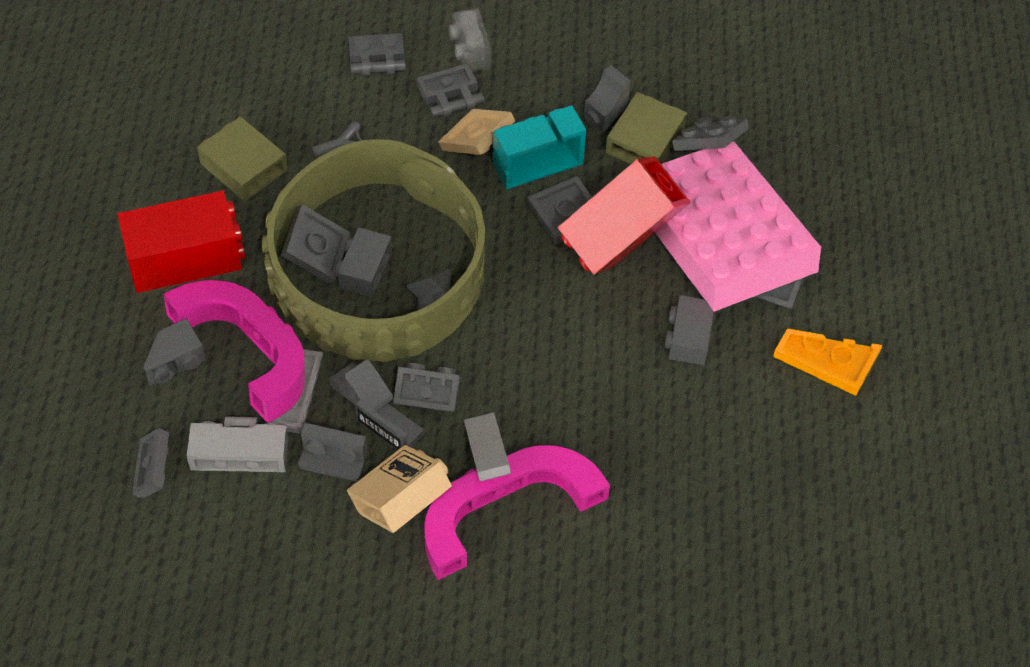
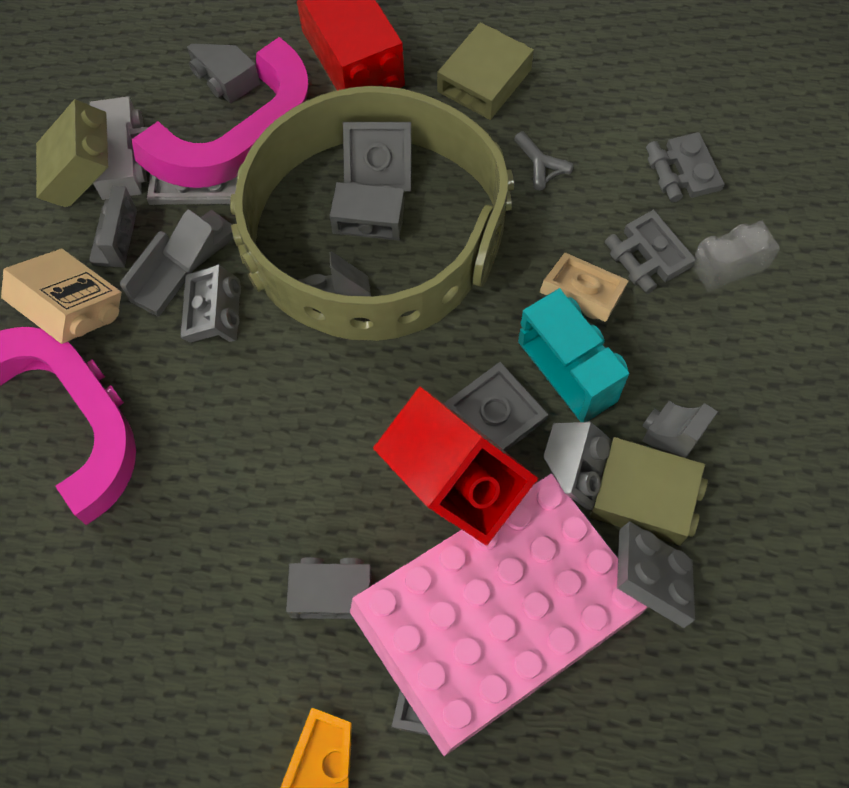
camera: 85 degrees right, 10 degrees up
(151, 463) = (81, 87): dark grey plate -> none
(250, 468) = (71, 154): none -> olive brick
(487, 447) = (121, 373): light grey tile -> none
(612, 159) = (577, 459): none -> dark grey slope

